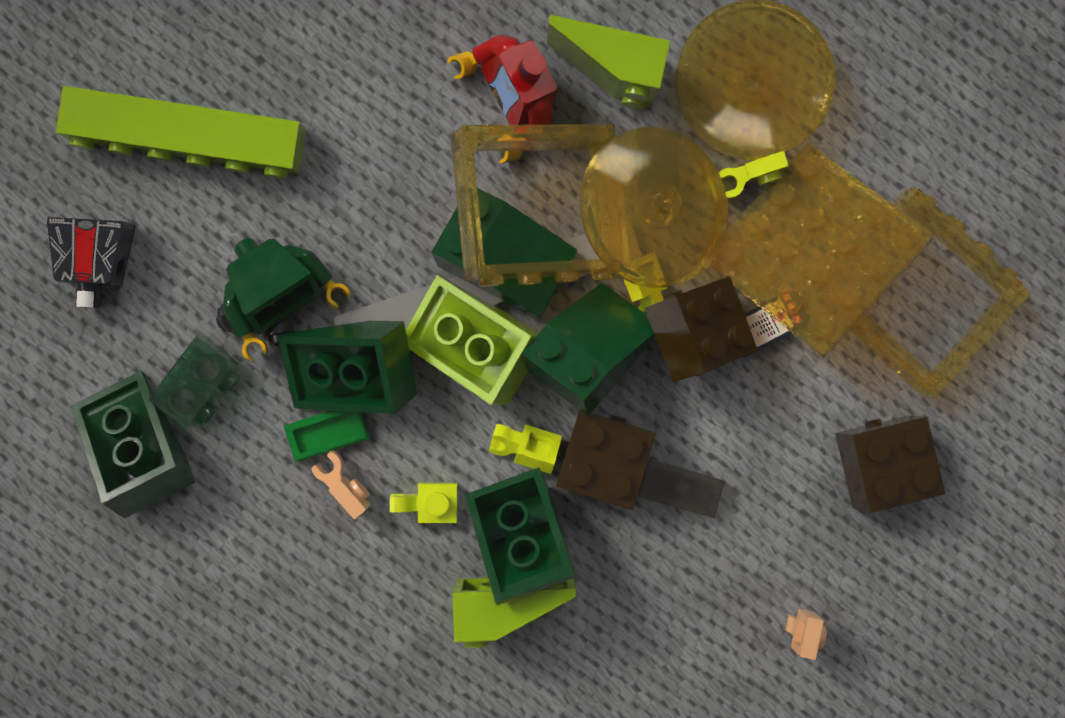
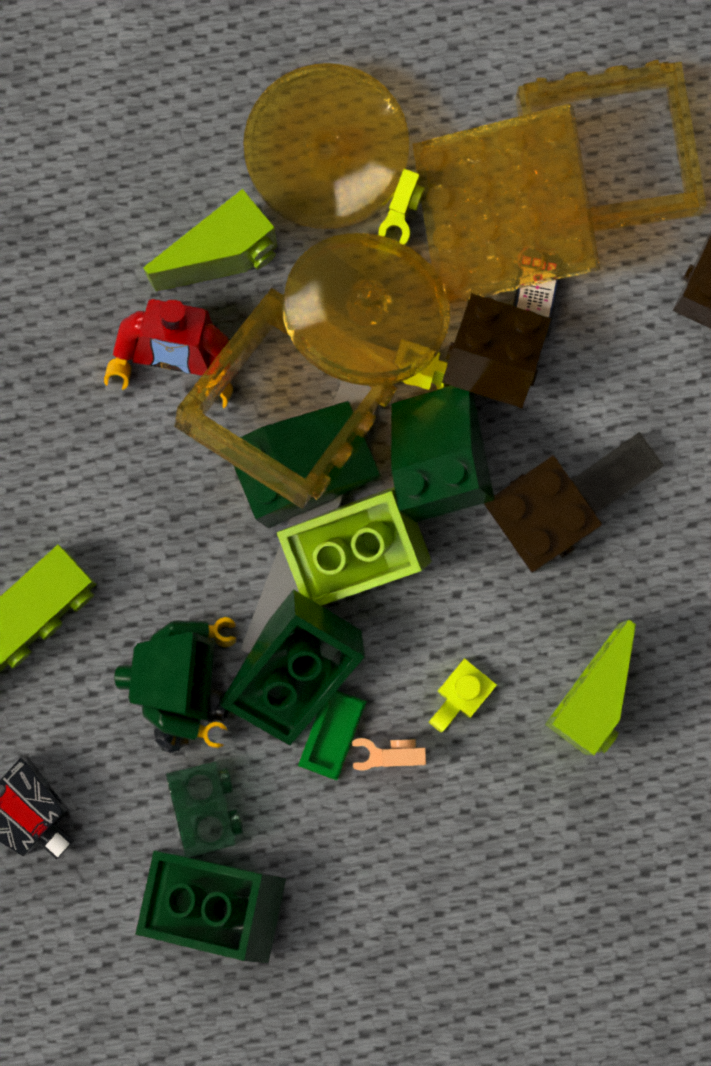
camera: 50 degrees left, 5 degrees down
(519, 536) = (548, 632): dark green slope -> none
(532, 447) = (482, 570): neon yellow plate -> none

